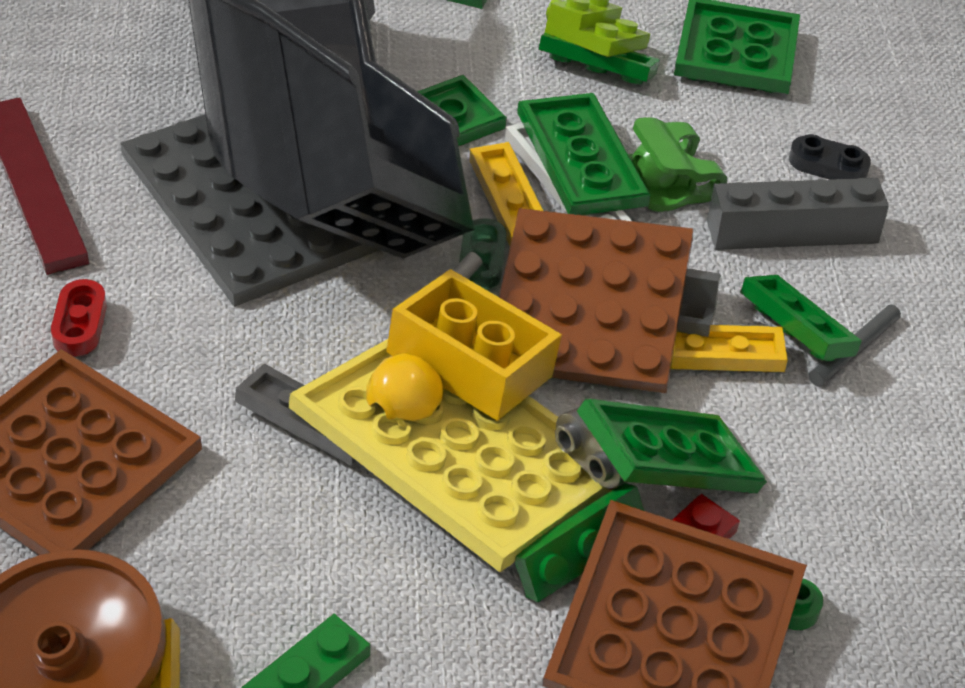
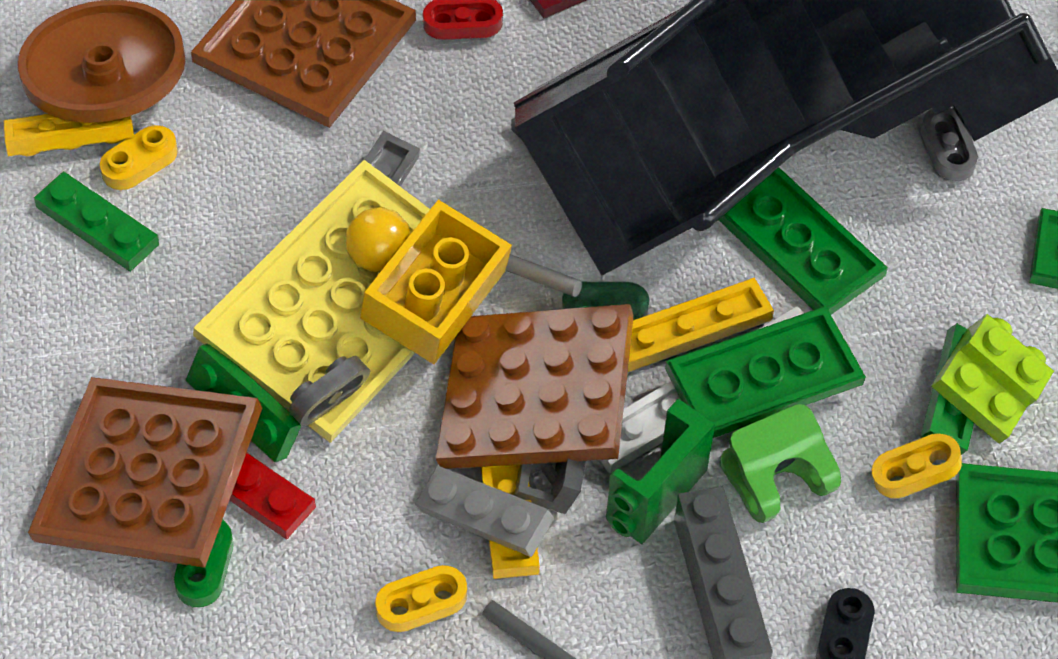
camera: 85 degrees right, 10 degrees up
(201, 630) = (141, 157): none -> yellow plate
(670, 447) = (336, 453): green tile -> none
(679, 89) = (916, 466): none -> yellow plate
(719, 221) = (642, 505): none -> green panel
(727, 354) = (484, 511): none -> light grey plate
(800, 317) = (555, 581): green plate -> none
(819, 427) = (419, 597): none -> yellow plate

